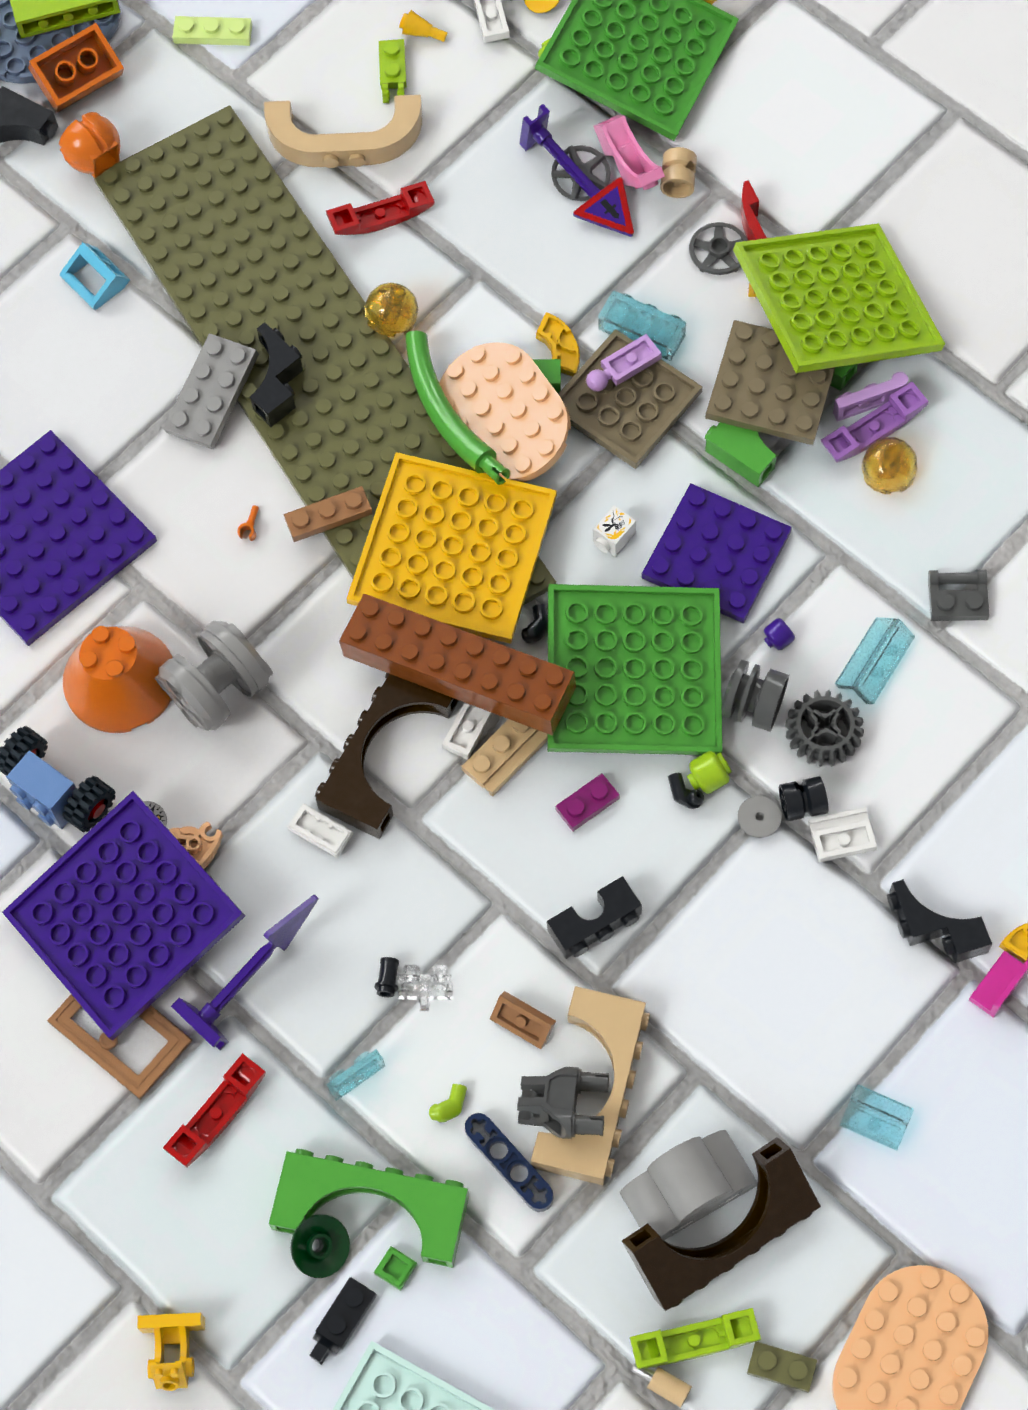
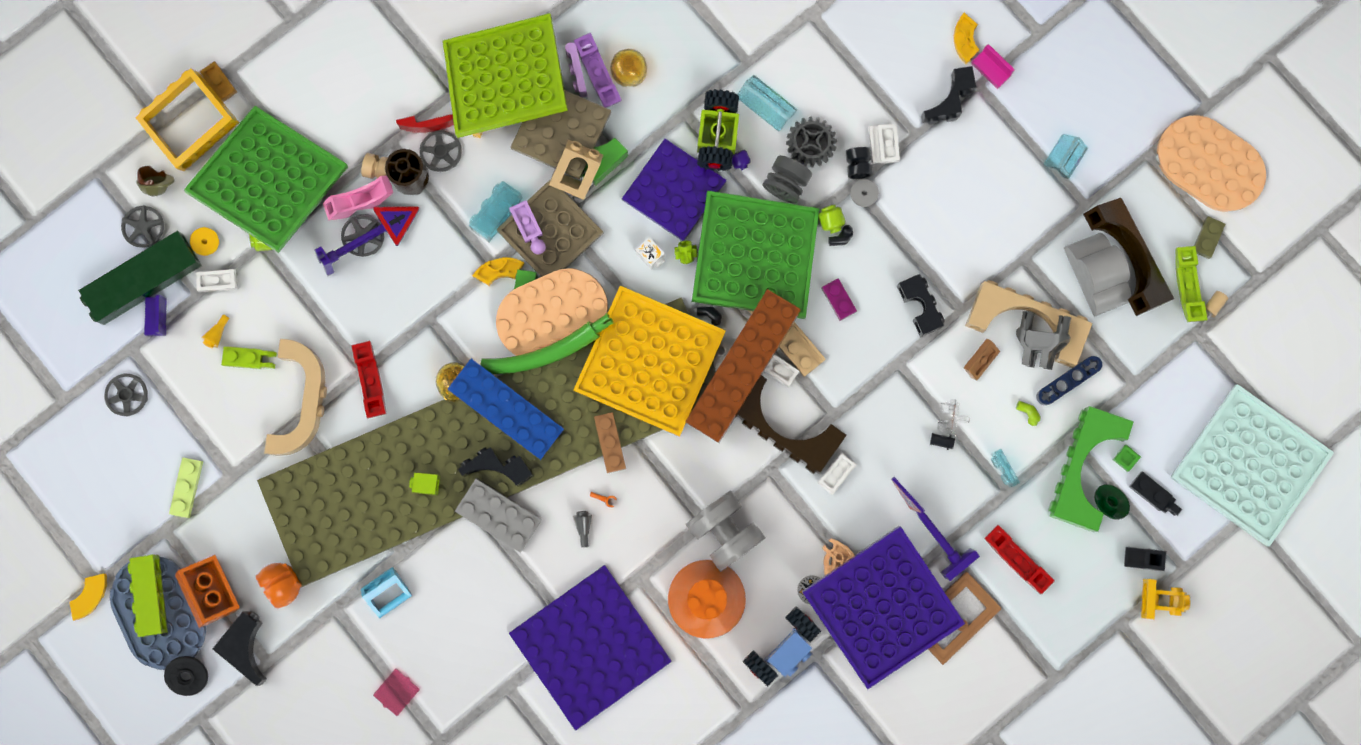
camera: 85 degrees left, 15 degrees up
(211, 500) = (583, 521): none -> dark grey cone
(233, 1307) = (1145, 559): none -> black brick
(242, 292) = (425, 483): none -> lime brick
(357, 371) = (505, 409): none -> blue plate
(623, 574) = (685, 252): none -> lime gear
(675, 202) = (407, 171): none -> dark brown cylinder
(734, 419) = (568, 184): none -> tan panel
(812, 590) = (718, 130): none -> brick
(958, 604) = (734, 43): dark grey plate -> none

